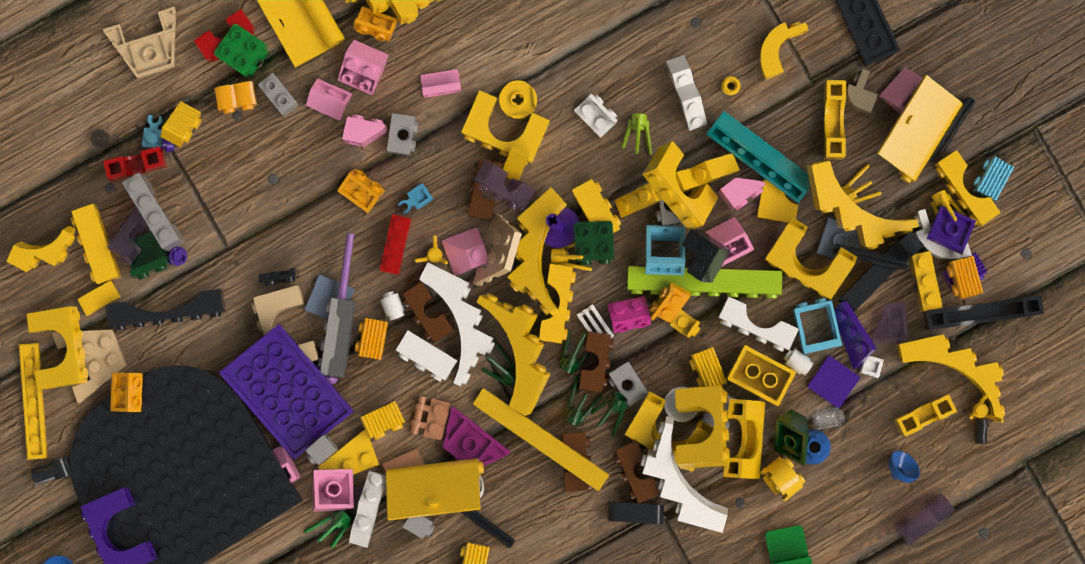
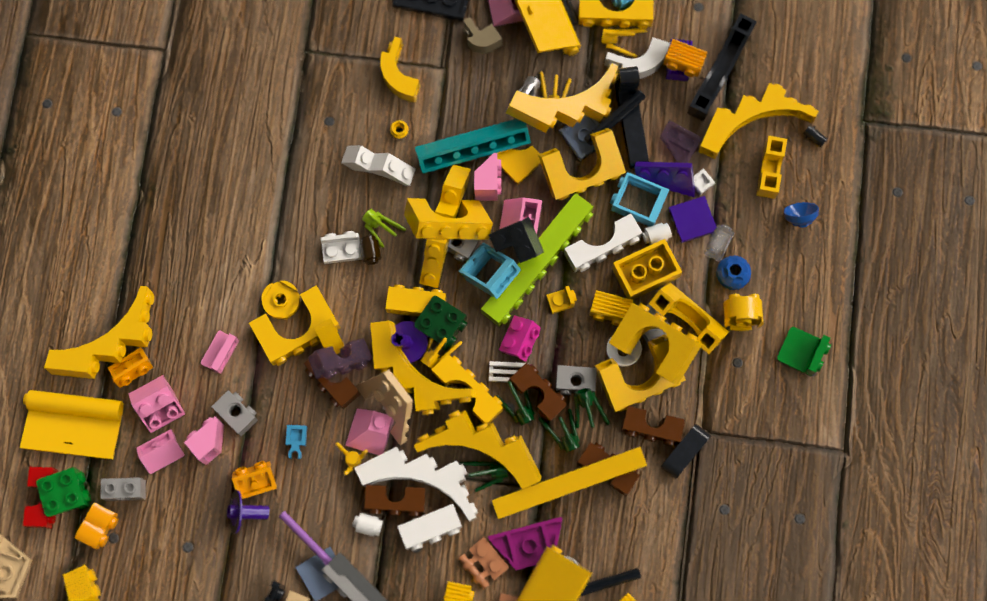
camera: 50 degrees left, 10 degrees down
(326, 198) = (237, 512): none -> dark purple piece
(372, 338) = (382, 562): light orange brick -> none
(395, 245) = (320, 484): red arch -> none
(611, 140) = (370, 250): none -> dark brown brick
(669, 302) = (535, 298): light orange bracket -> none
(691, 506) = (686, 403): white arch -> none
(792, 436) = (715, 279): dark green slope -> none
(834, 119) = (473, 61): yellow arch -> none
(850, 166) = (531, 84): none -> flat silver piece
(925, 520) = (857, 237): clear purple arch -> none
(927, 286) = (674, 95): yellow arch -> none
(951, 233) = (640, 46): dark purple tile -> none
(981, 410) = (797, 123): yellow plant -> none

